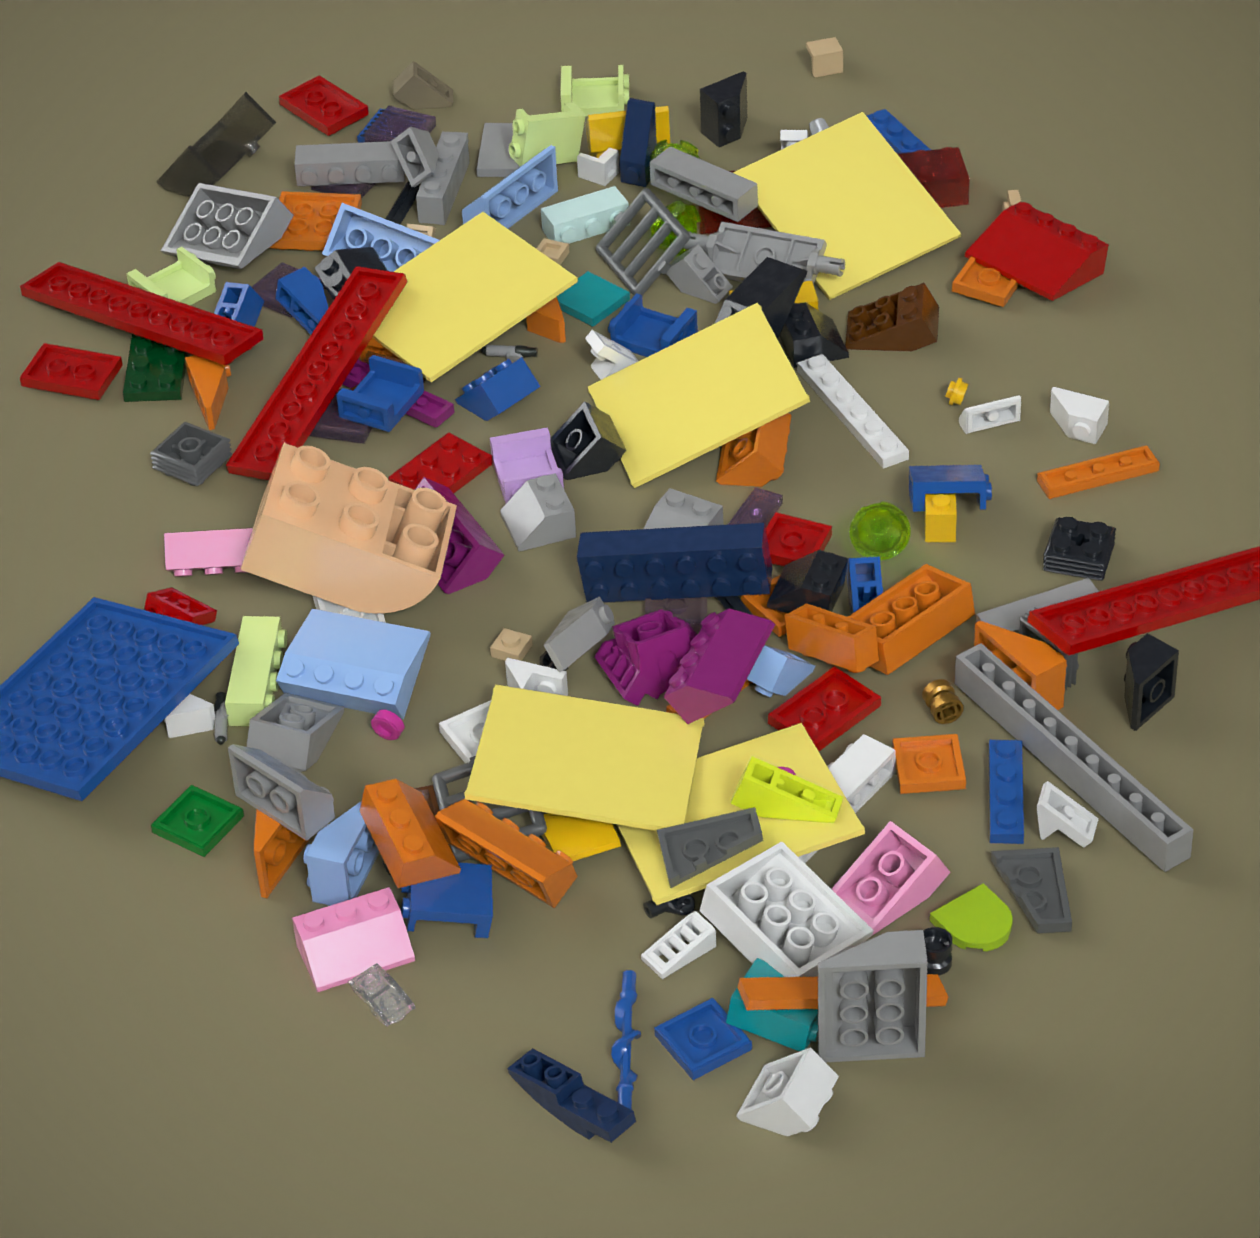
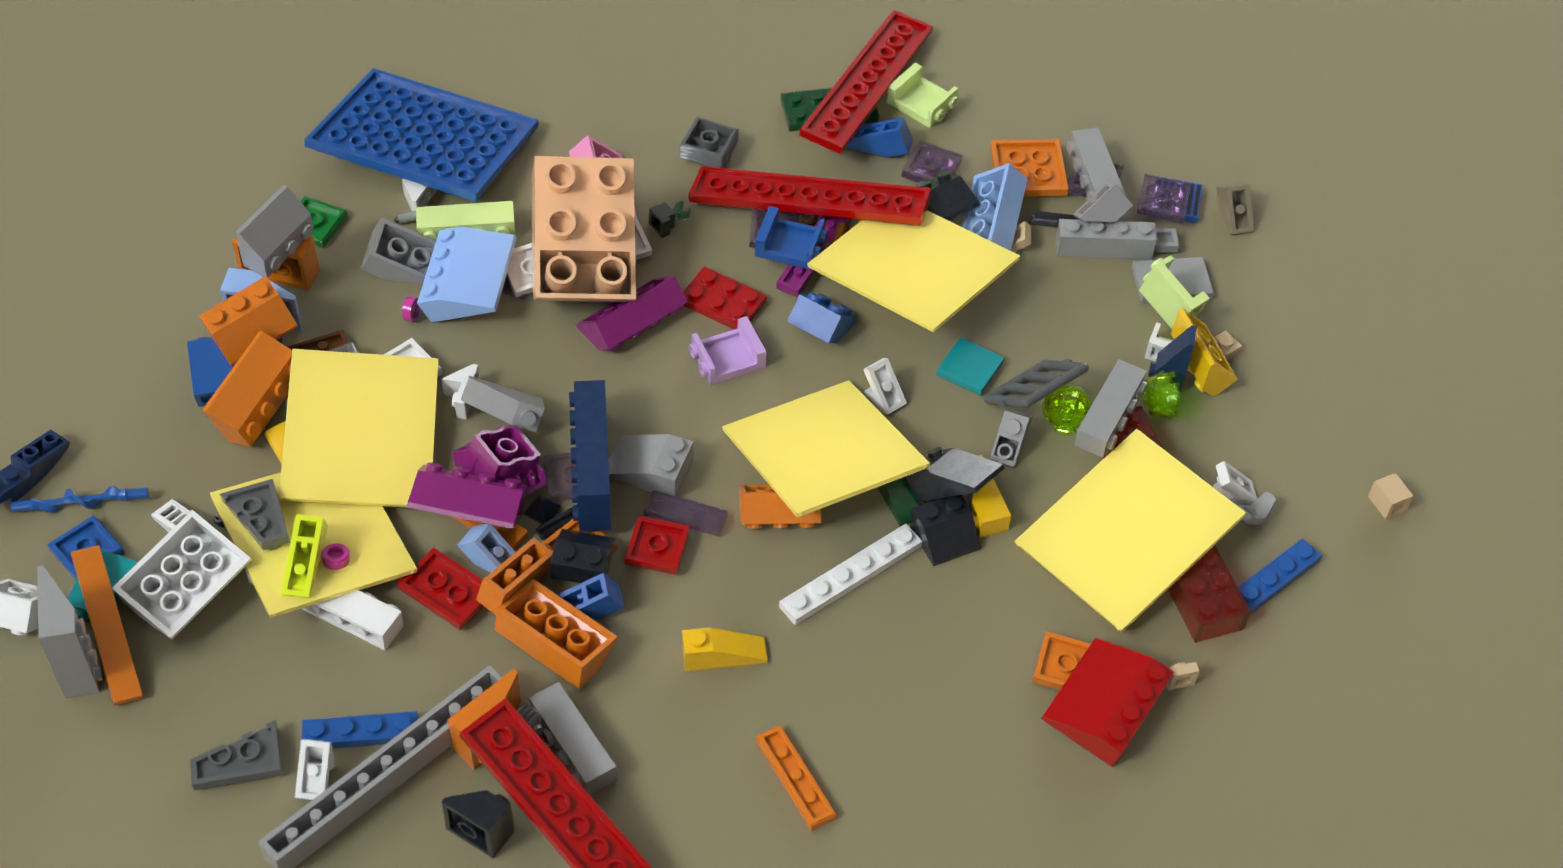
camera: 75 degrees right, 10 degrees up
(71, 371) = (801, 60): red plate -> none
(179, 606) = (522, 172): red bracket -> none
(209, 386) = (786, 143): orange slope -> none
(219, 148) = (1090, 87): clear smoke windscreen -> none
(228, 225) = (992, 112): light grey slope -> none
(303, 297) = (908, 169): blue slope -> none
(323, 105) = (1194, 147): red plate -> none
(352, 937) = (177, 320): bright pink slope -> none
(382, 995) = (125, 350): clear slope -> none
(511, 352) = (885, 324): light grey piece -> none
(511, 645) = (514, 374): tan plate -> none
(519, 191) = (1089, 289): light blue slope -> none
(539, 513) = (670, 370): light grey slope -> none
(548, 322) = (927, 342): orange slope -> none
(554, 250) = (1023, 328): tan plate -> none
(583, 215) = (1080, 343): light aqua brick -> none
(586, 443) = (764, 387): black slope -> none
(595, 94) = (1273, 325): yellowish green panel -> none
(648, 330) = (931, 412): blue panel -> none
(724, 109) = (1263, 423): black slope -> none
(741, 248) = (1043, 477): light grey plate -> none
(880, 531) = (661, 601): clear neon green cone -> none
(890, 878) = (245, 651): bright pink slope -> none
(895, 322) = (978, 592): reddish brown slope -> none
(929, 763) = (385, 669): orange plate -> none
(938, 950) = (163, 689): black wheel -> none
(942, 701) = (459, 671): pearl gold wheel -> none
(948, 480) = (735, 648): blue panel -> none
(956, 391) = (885, 650): yellow plate -> none
(975, 919) = (206, 719): lime tile -> none
(990, 414) = (859, 681): white slope -> none
(1079, 414) = (865, 752): white slope -> none
(1079, 548) = (680, 780): black brick -> none

